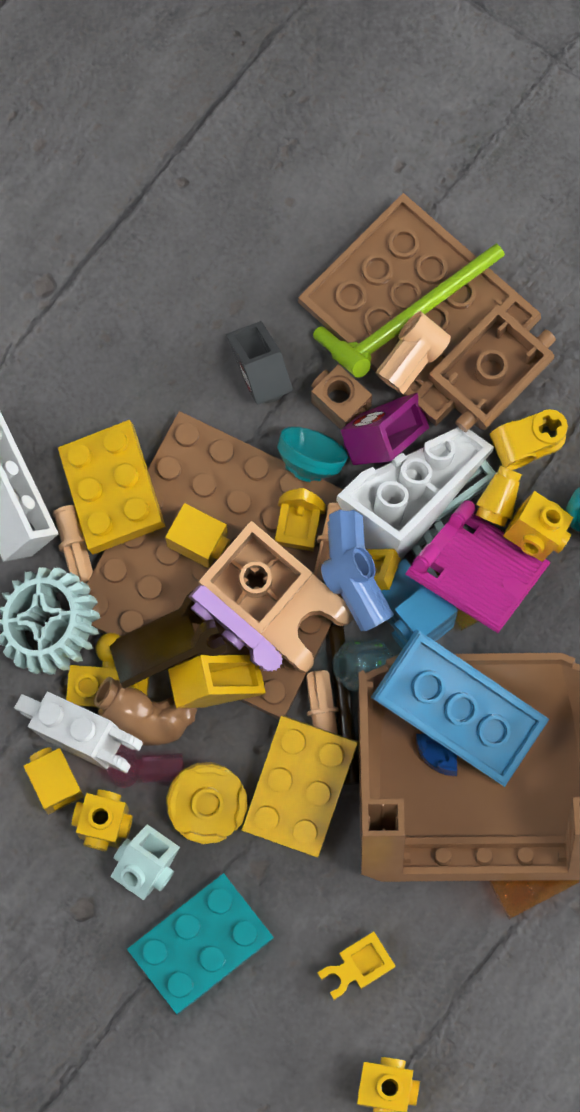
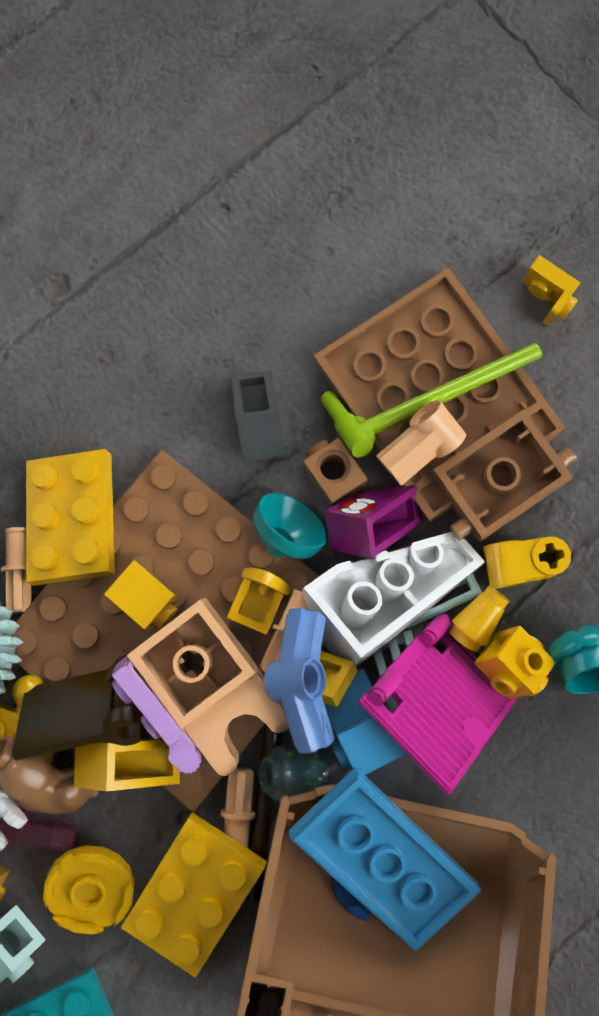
camera: 10 degrees right, 5 degrees up
(501, 188) = (552, 284): none -> yellow bracket

